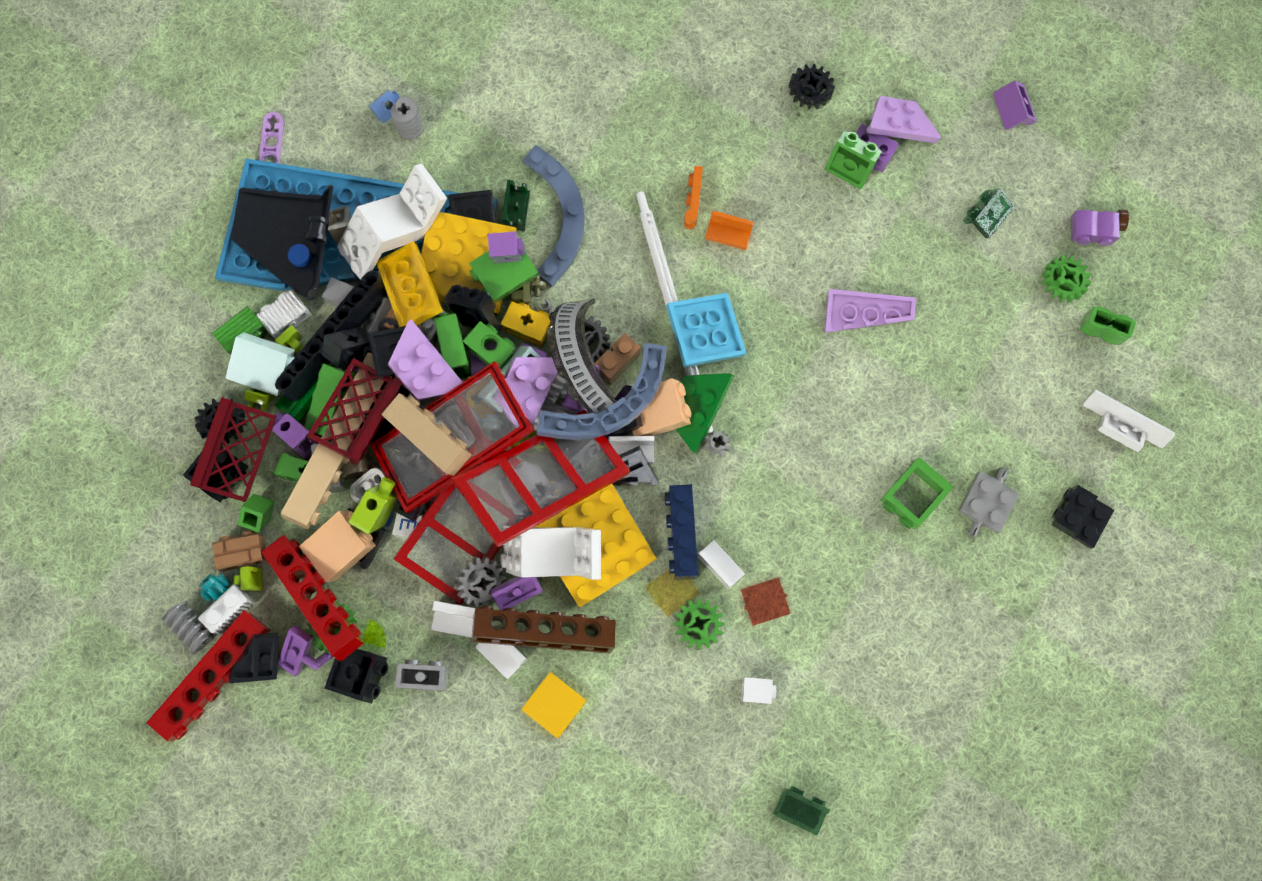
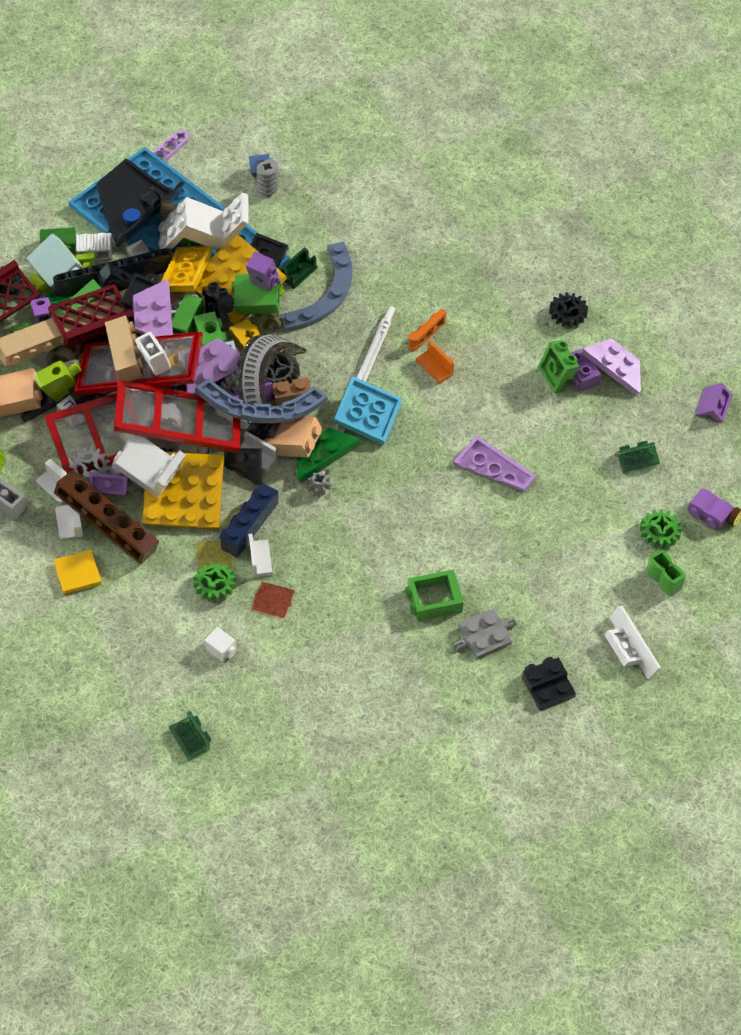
camera: 35 degrees right, 20 degrees down
(468, 425) = (153, 353): none -> white brick

